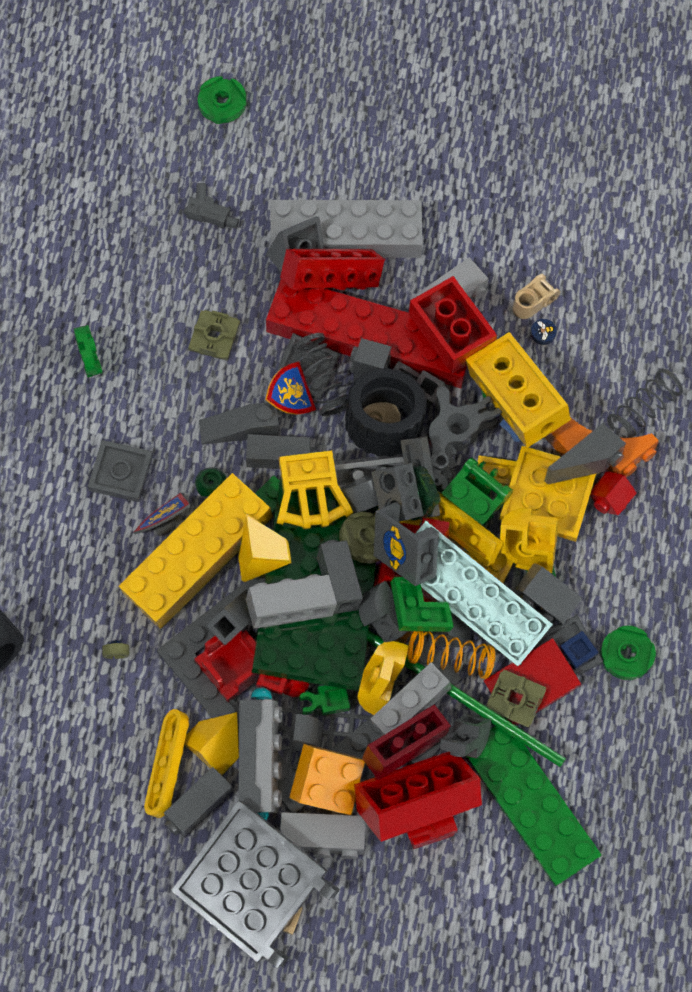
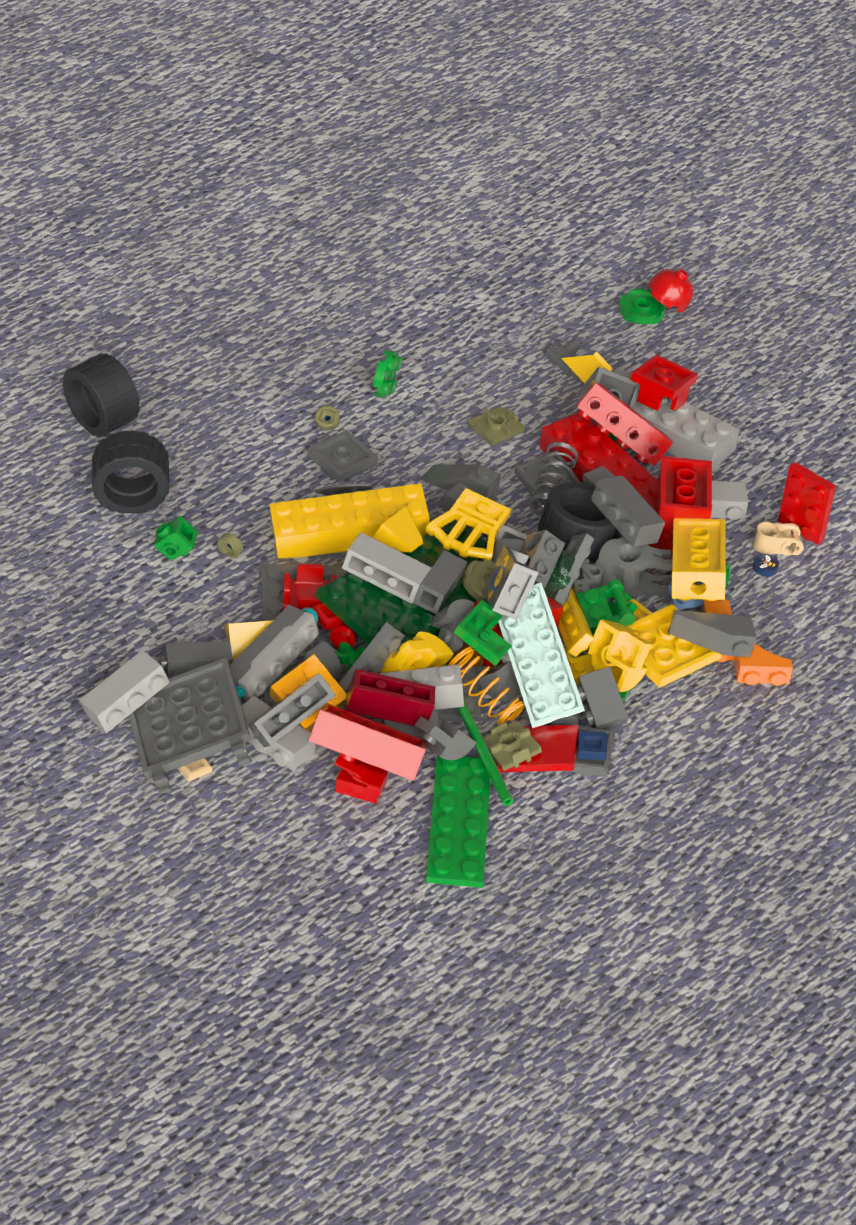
camera: 35 degrees right, 25 degrees down
(63, 682) = (175, 538): none -> green brick
(71, 435) = (327, 418): none -> olive tile
(166, 763) = (206, 623): yellow plate -> none
(177, 894) = (124, 691): none -> light grey brick
(231, 619) = (328, 555): dark grey brick -> none
(236, 66) = (672, 288): none -> cylinder
(246, 213) = (586, 365): none -> yellow slope
(290, 391) = (517, 475): shield -> none
(334, 201) = (663, 378): none -> red panel
(342, 821) = (291, 710): none -> brick
(358, 711) = (376, 653): none -> dark grey plate
(431, 385) = (627, 511): none -> dark grey brick
(541, 252) = (807, 502): none -> red plate
(612, 493) = (720, 680): red brick -> none
(625, 423) = (835, 646): dark grey piece -> none
(640, 645) = (635, 793): green plate -> none

